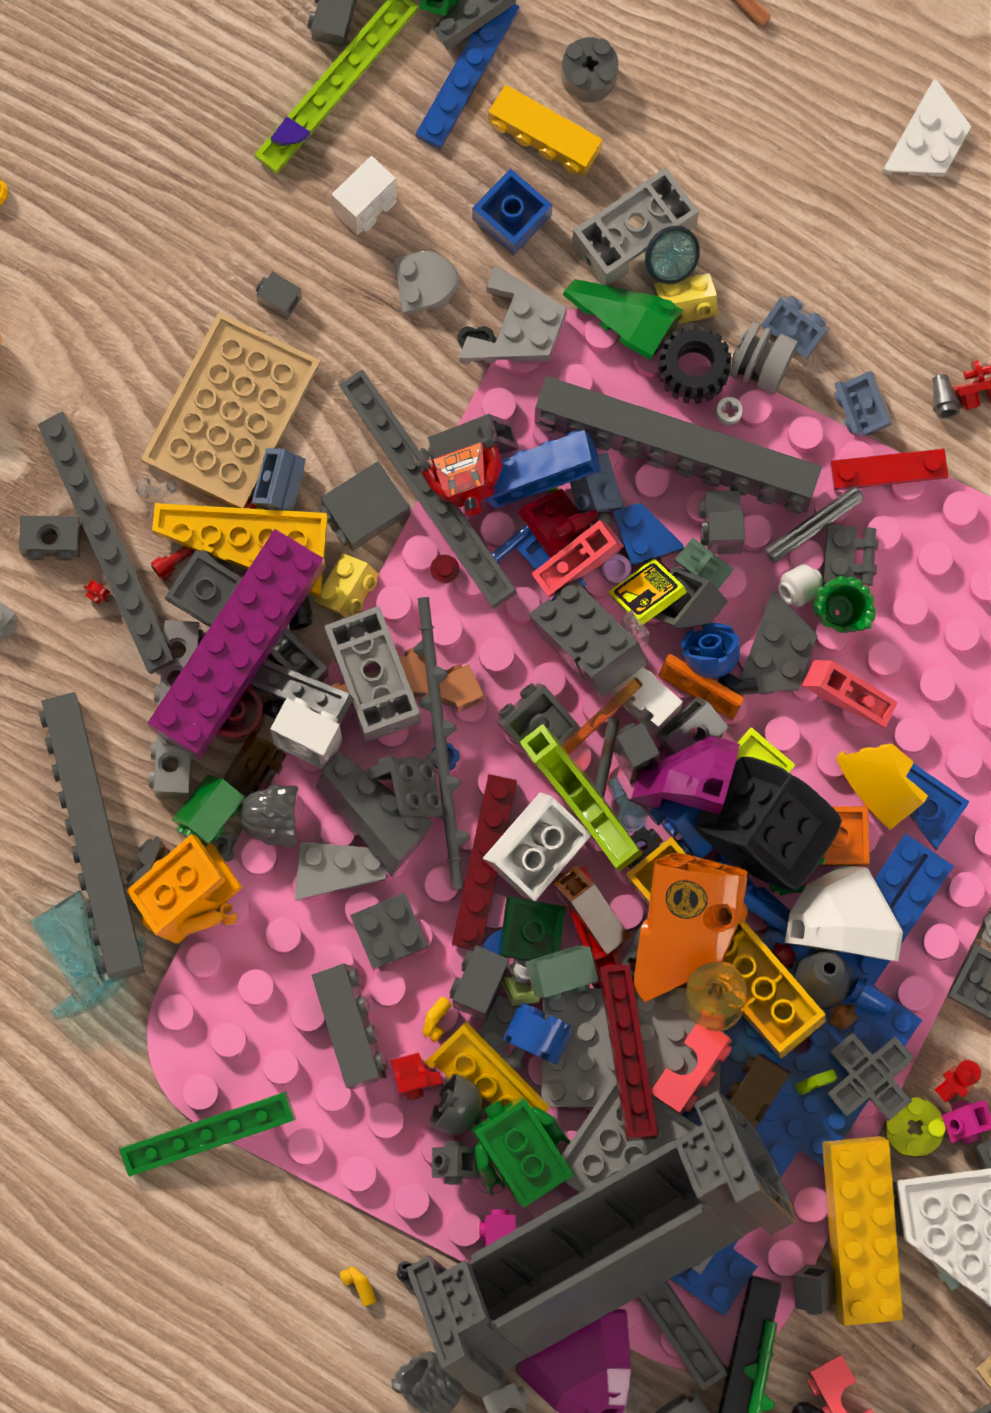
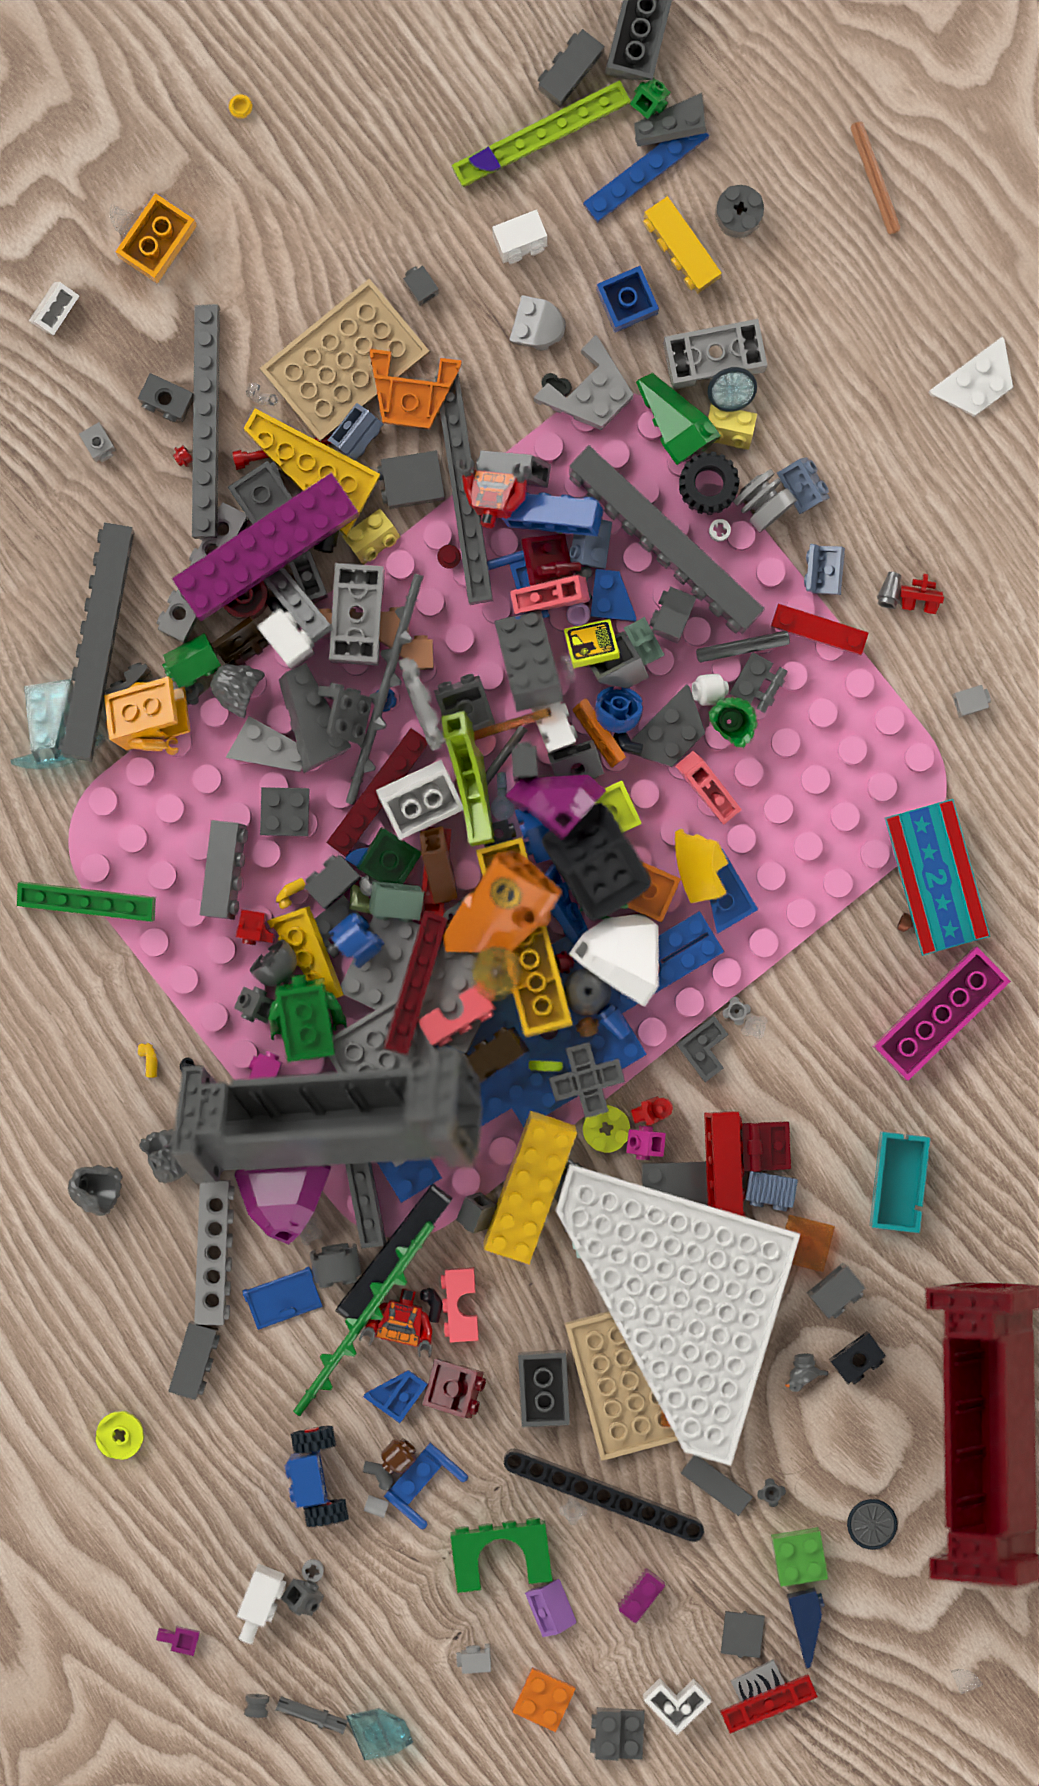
camera: 30 degrees right, 10 degrees up
(324, 420) = (410, 400): none -> orange wing
(490, 738) = (419, 697): none -> light grey plate

